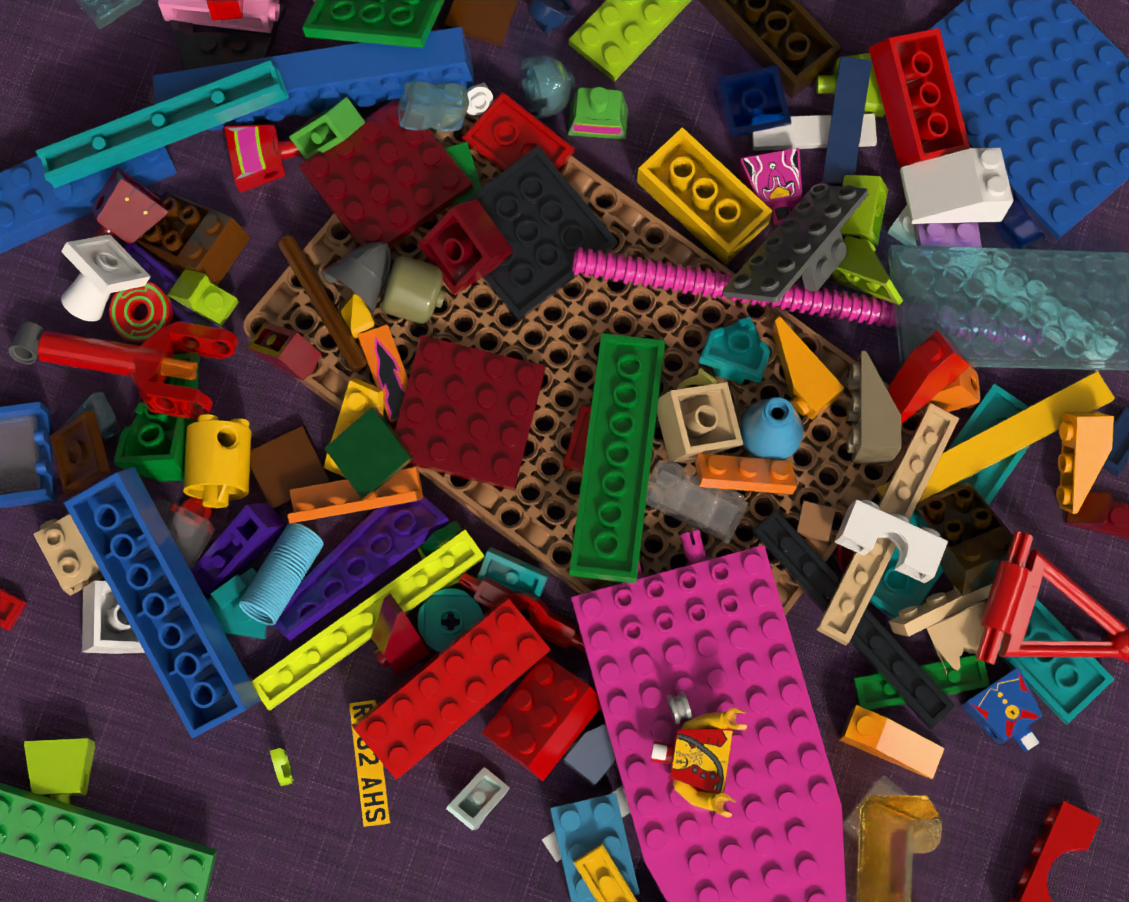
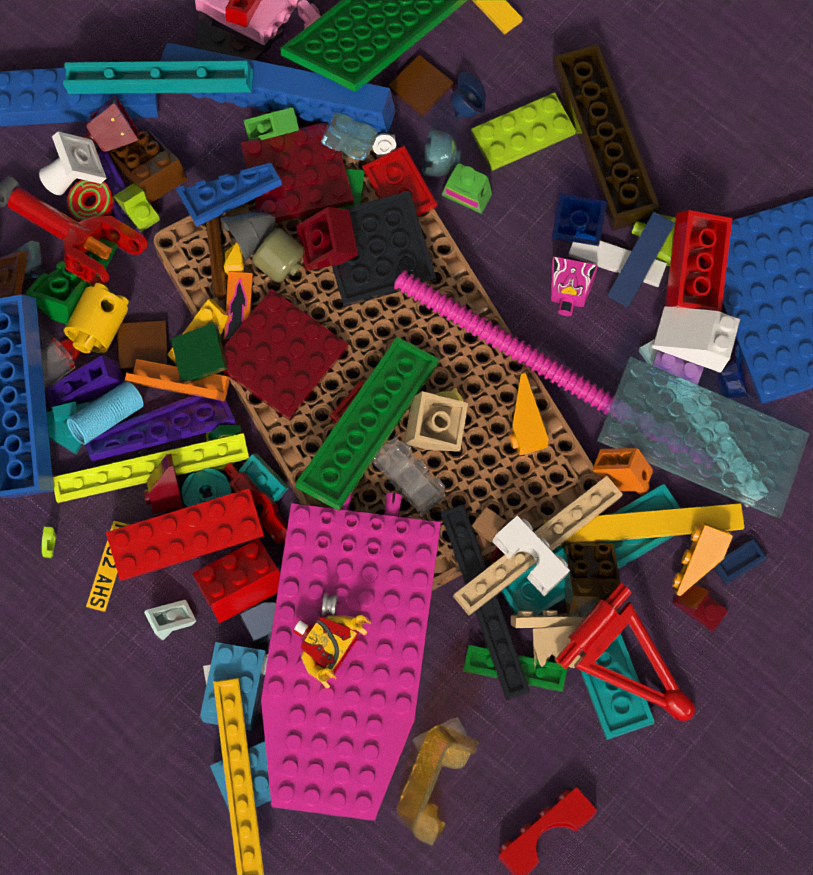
camera: 25 degrees right, 5 degrees down
(257, 154) = (217, 125): red torso -> none
(285, 350) = (174, 263): dark red slope -> none
(303, 246) = (219, 196): none -> blue wing
(704, 196) = (515, 273): yellow brick -> none
(736, 352) = (485, 387): teal plate -> none
(745, 473) = (452, 471): orange plate -> none
(771, 429) = (486, 449): dark azure cone -> none
(802, 244) = (568, 331): dark grey bracket -> none
(865, 272) = (603, 365): lime slope -> none
(868, 217) = (626, 325): lime panel -> none
(873, 414) = (556, 476): dark tan slope -> none
(891, 742) = (475, 699): light orange slope -> none
(926, 373) = (608, 451): red slope -> none
(1006, 710) = (566, 711): blue torso -> none

